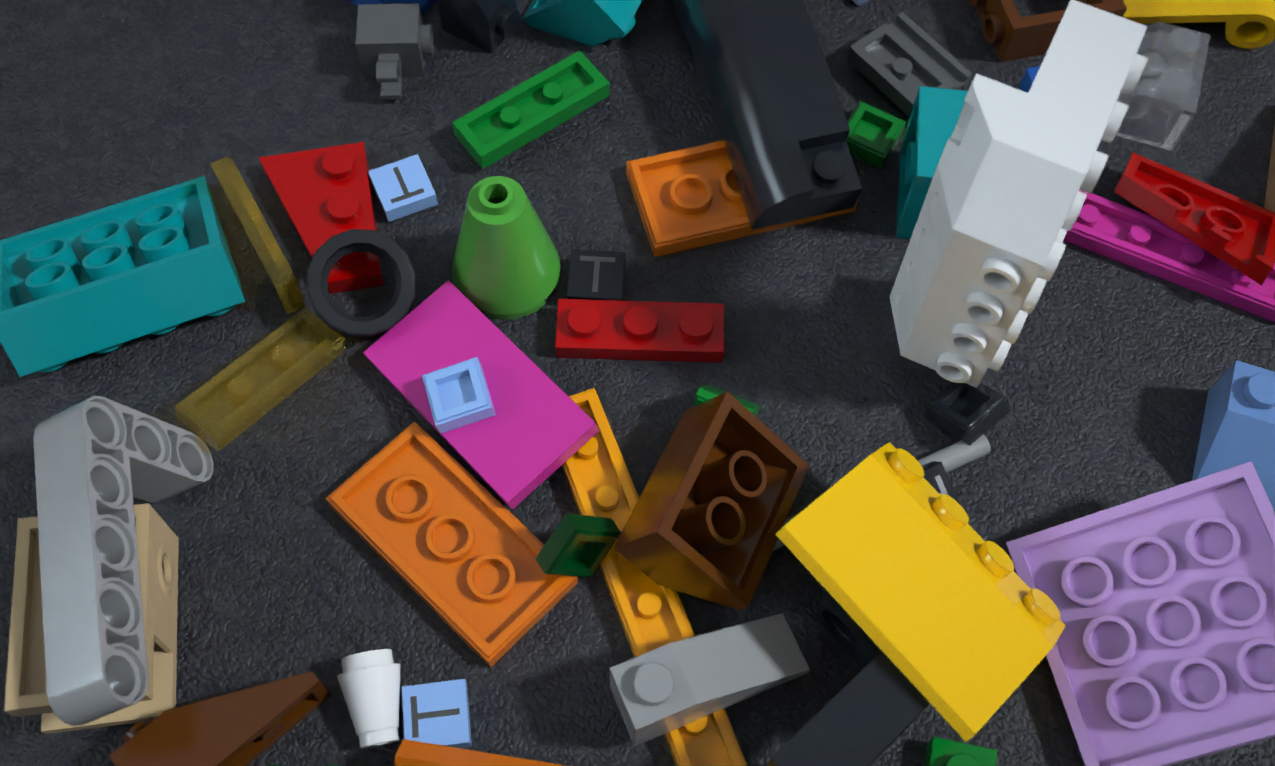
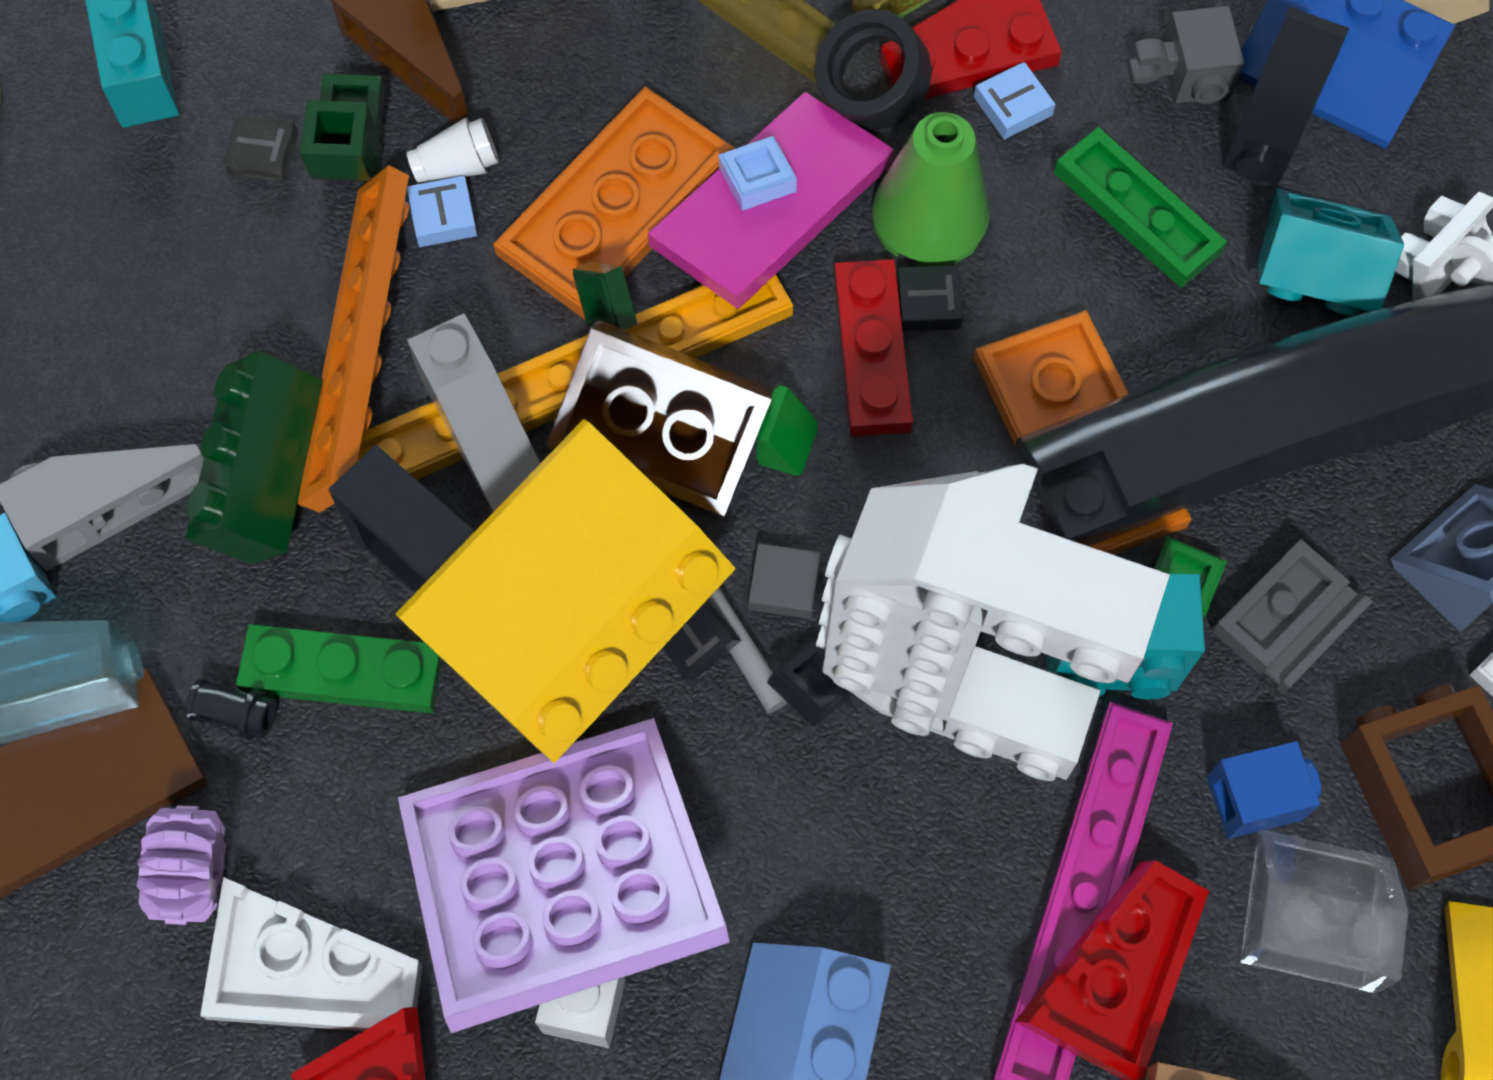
camera: 85 degrees right, 5 degrees up
(866, 423) = (784, 581): none -> dark grey tile

